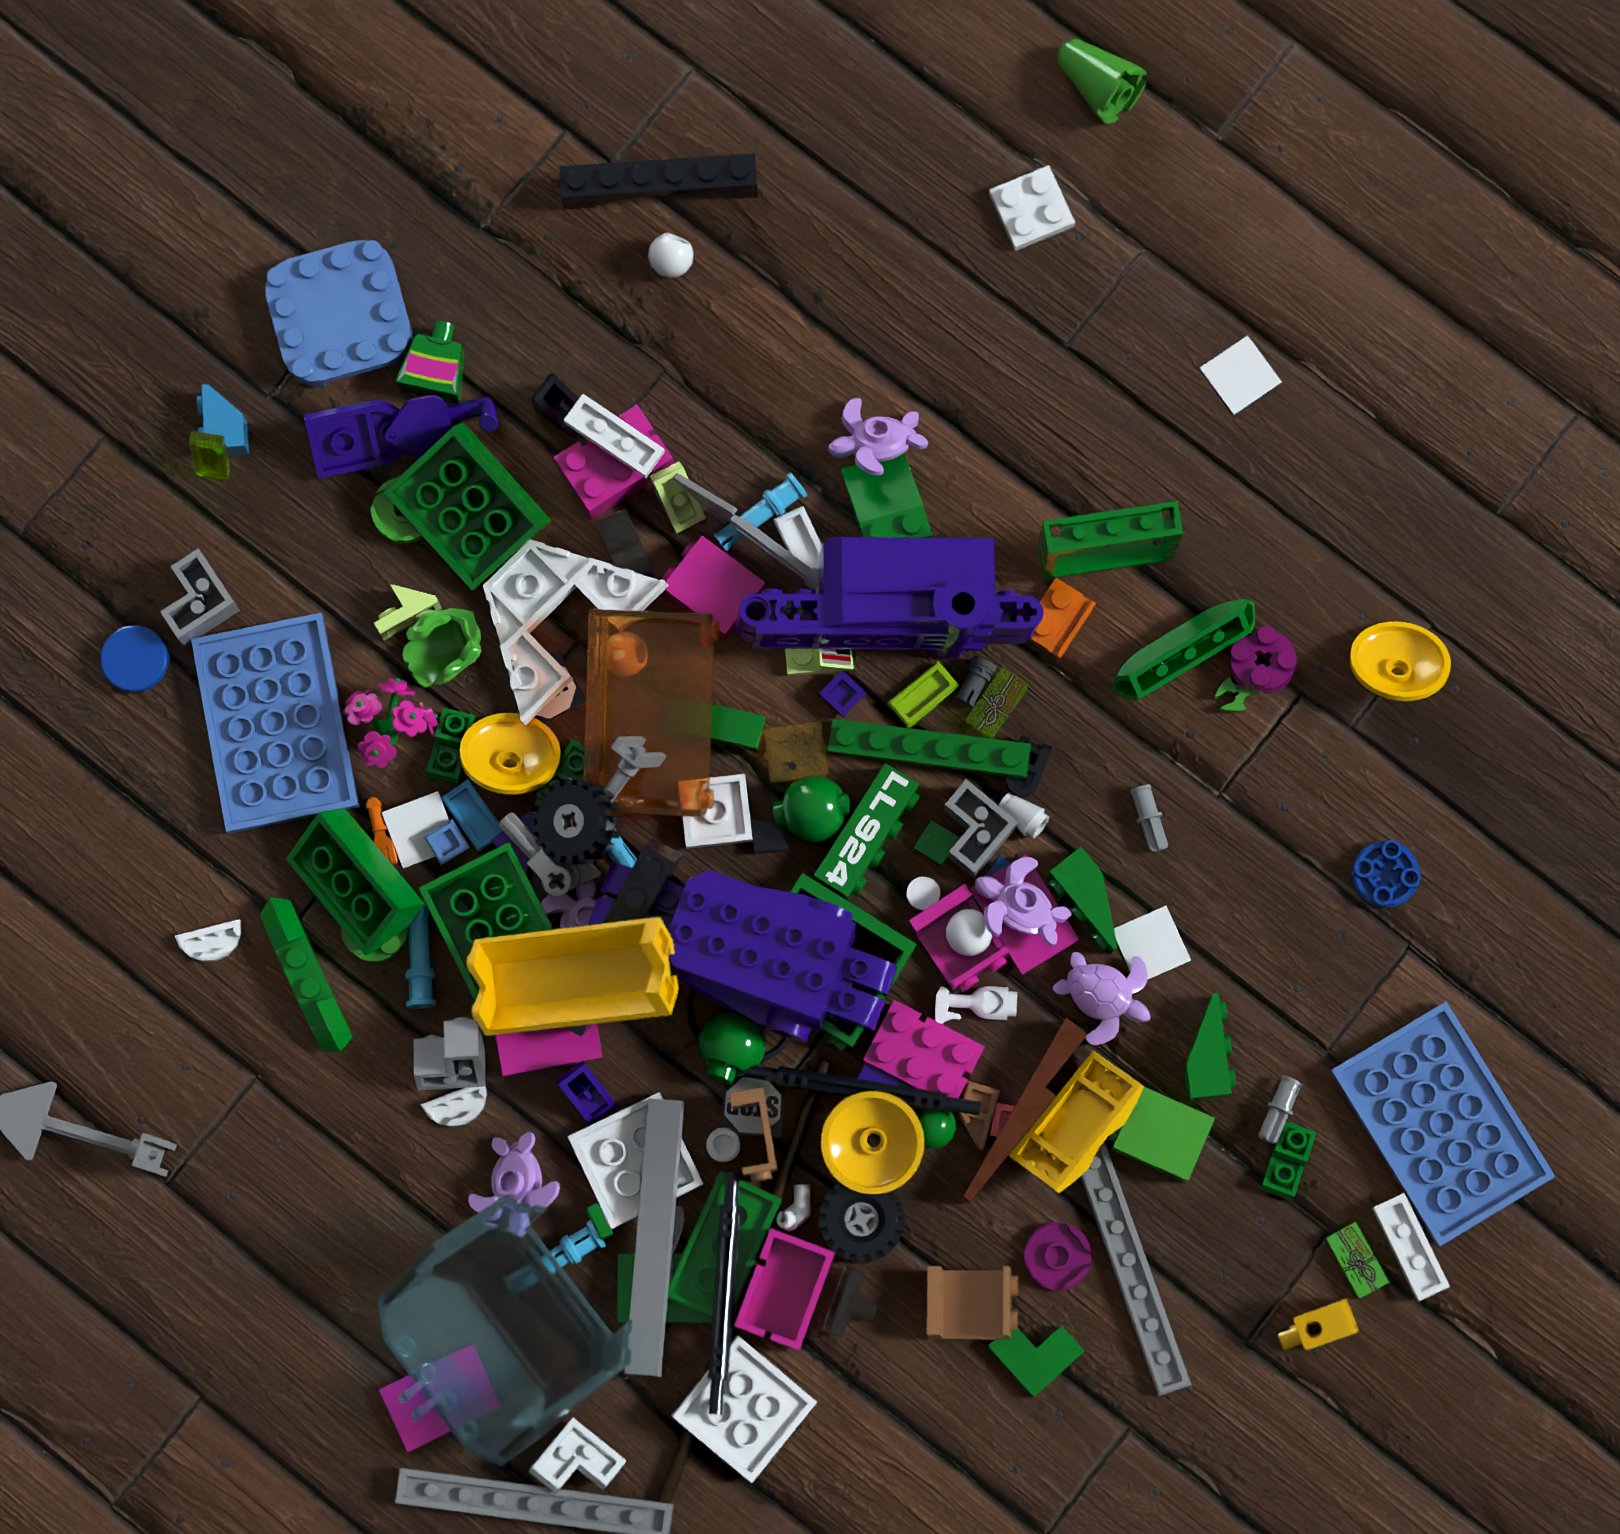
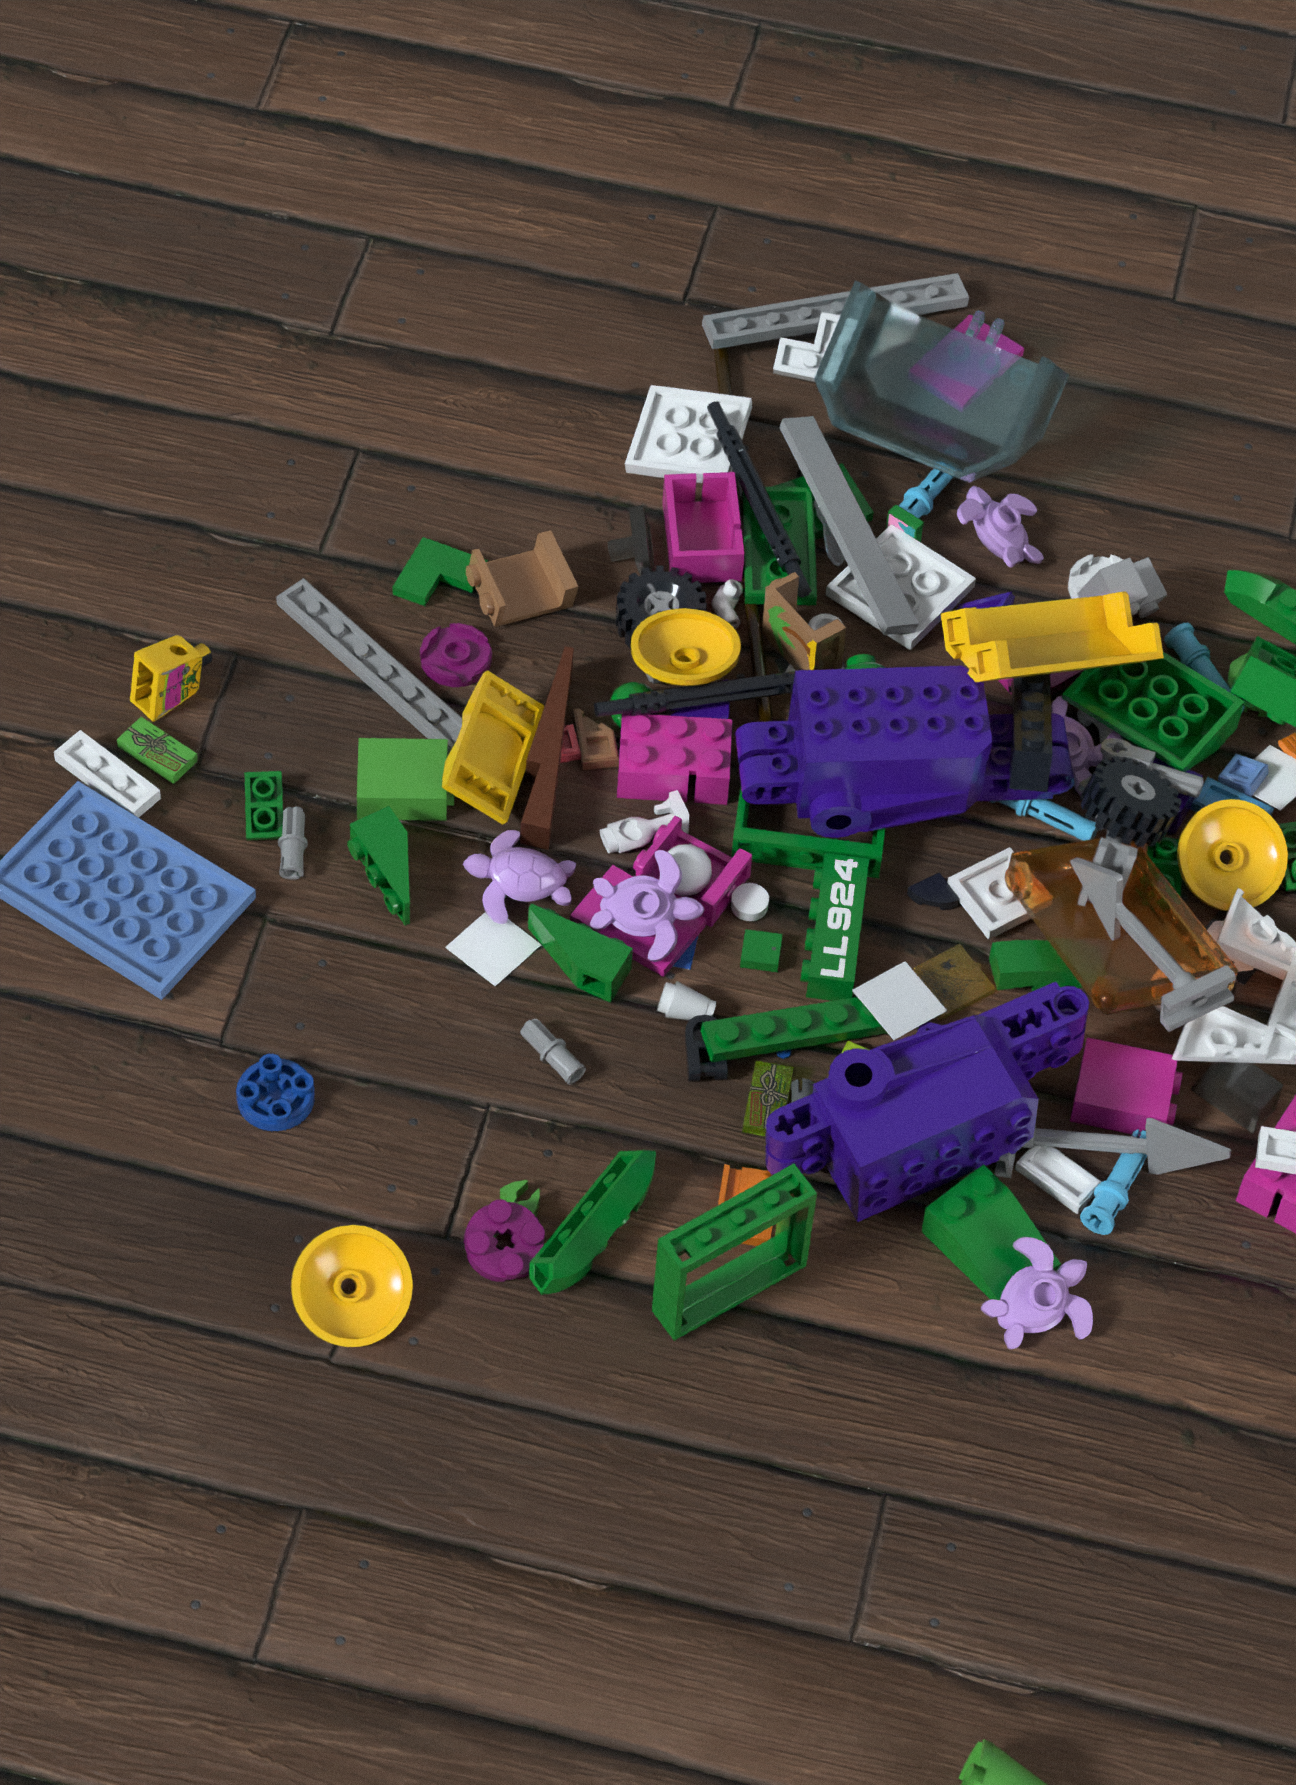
camera: 150 degrees right, 25 degrees down
(646, 586) = (1190, 995): none -> light grey piece
(677, 503) = (1223, 1172): yellowish green slope -> none
(812, 808) = (904, 923): green brick -> none
(853, 737) = (899, 1000): none -> white sticker
(985, 824) = (724, 969): light grey brick -> none
(1031, 208) = (1005, 1627): white plate -> none
(1240, 375) = (670, 1543): white sticker -> none

